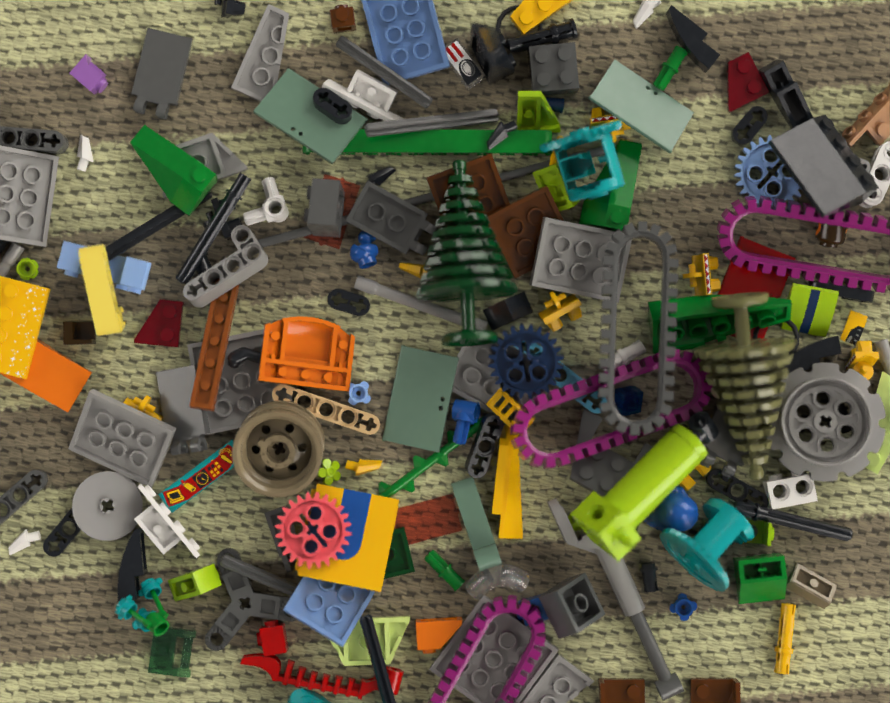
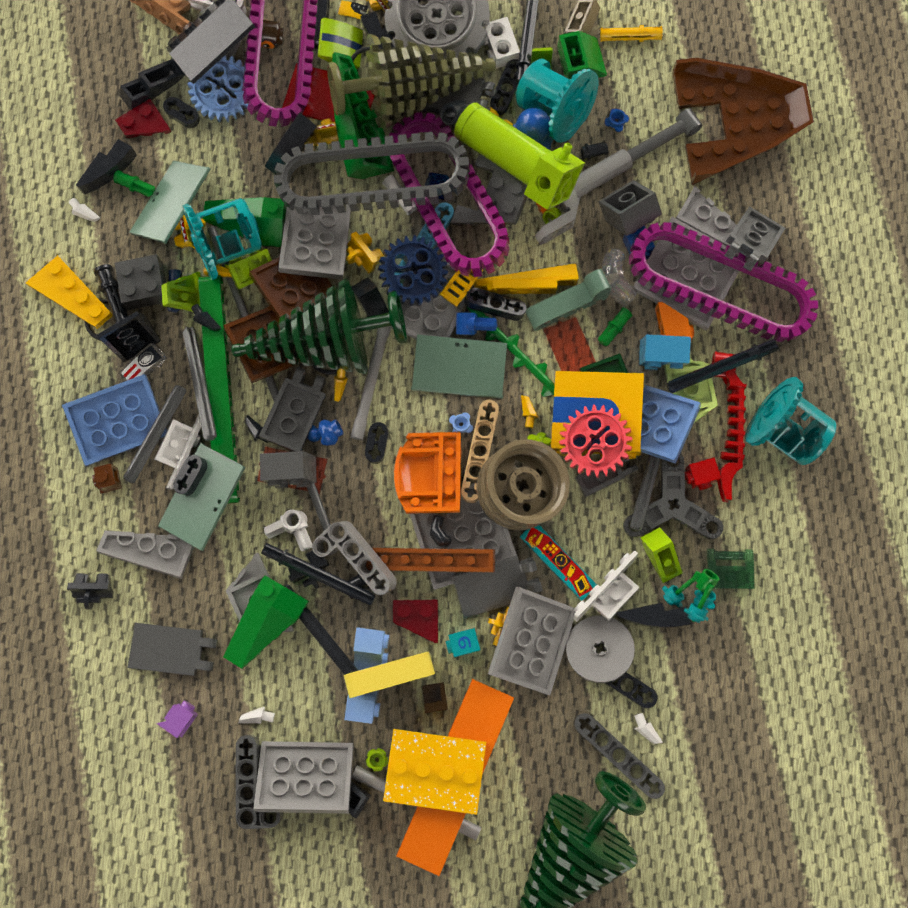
camera: 95 degrees left, 10 degrees down
(129, 367) = (463, 643): none -> teal brick
(404, 616) = (664, 350): none -> dark azure brick
(690, 244) = (297, 135): none -> black slope

